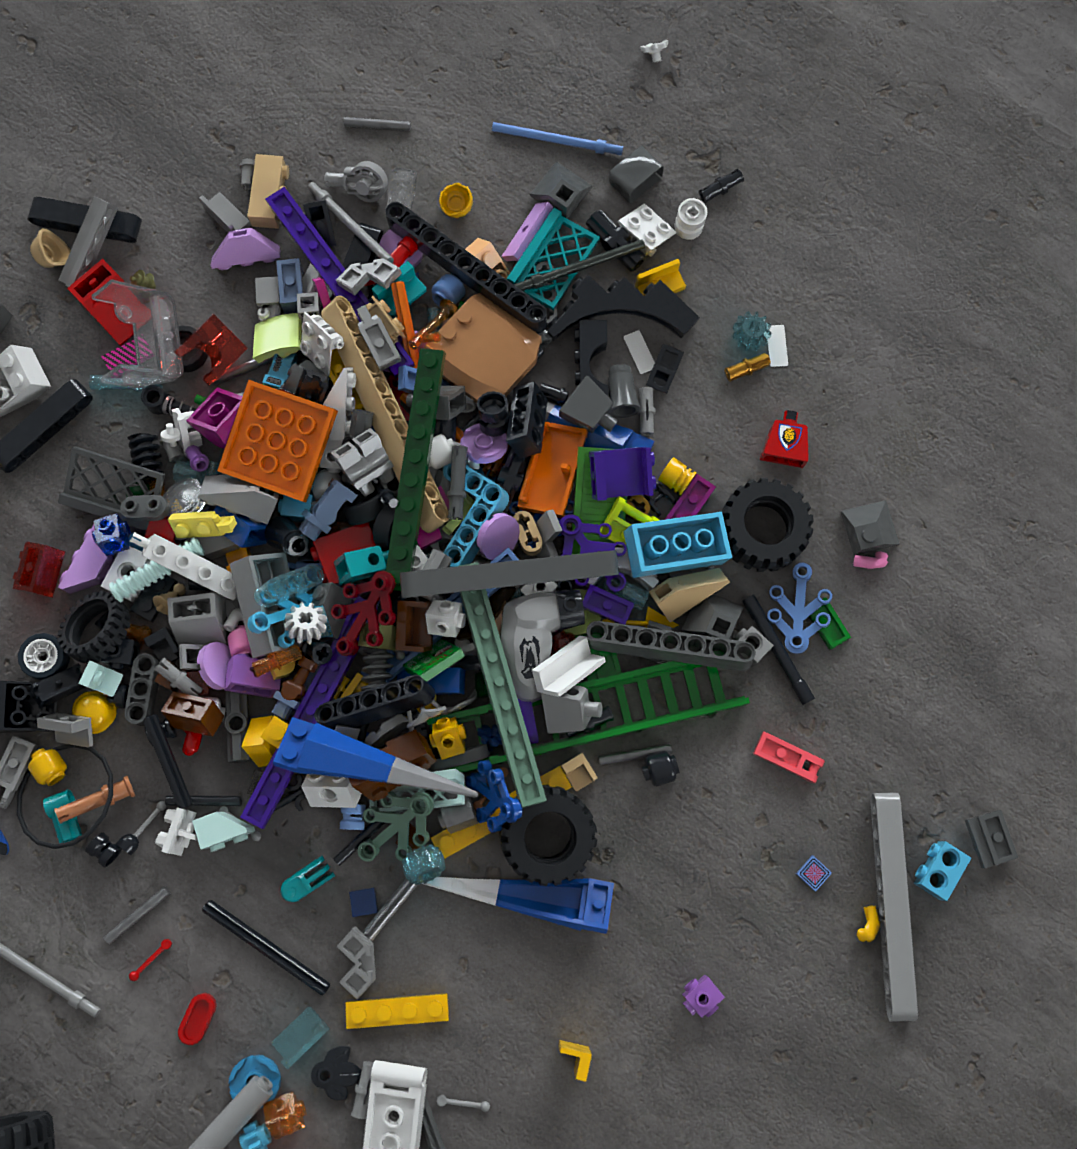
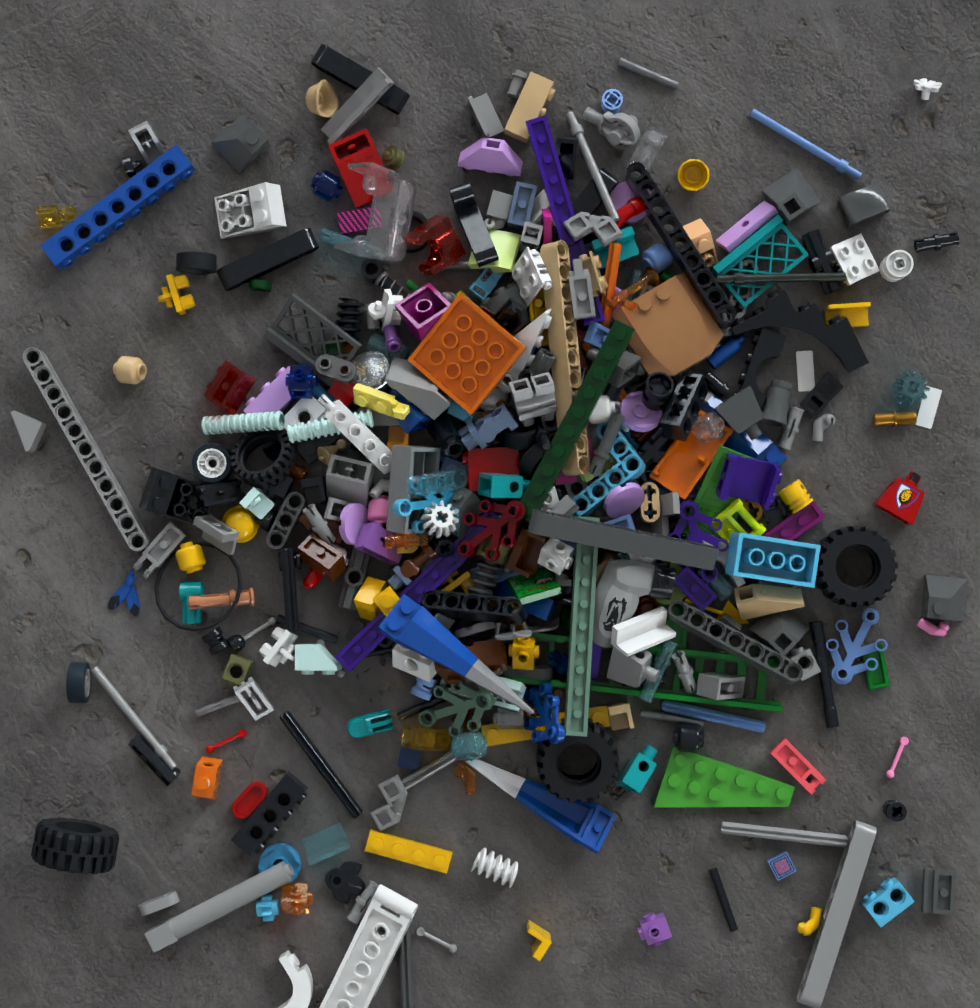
camera: 25 degrees right, 10 degrees up
(41, 454) = (260, 285): none -> dark green tile
(61, 600) = (243, 423): none -> light aqua piece
(71, 1014) = (153, 761): none -> black hinge
(80, 332) = (326, 185): none -> clear blue head
(129, 865) = (237, 660): none -> olive brick
(138, 1011) = (207, 778): none -> orange torso
(149, 887) = (245, 686): none -> light grey tile
(203, 1063) = (245, 838): none -> black brick
(244, 316) = (473, 224): none -> black beam
(348, 156) = (611, 105): none -> light blue wheel
(373, 873) = (426, 738): none -> clear yellow slope
(436, 900) = (468, 776): none -> clear orange arm
(500, 991) = (496, 867): none -> white piece
(551, 359) = (725, 352): none -> blue cylinder
(560, 433) = (708, 427): none -> clear head
(601, 693) = (660, 664): none -> clear light blue pin
(616, 832) = (632, 777): none -> teal torso
(629, 697) = (684, 671): none -> light grey pin
(673, 699) = (720, 685): none -> light grey slope
(676, 397) = (820, 425): none -> light grey arm
(678, 735) = (713, 715): none -> medium blue axle
(698, 811) = (706, 782): none -> bright green wing
(765, 935) = (723, 899): none -> black bar
(802, 837) = (784, 834): none -> light grey axle
(889, 690) = (903, 741): none -> bright pink hinge
(915, 763) = (899, 807): none -> black bush

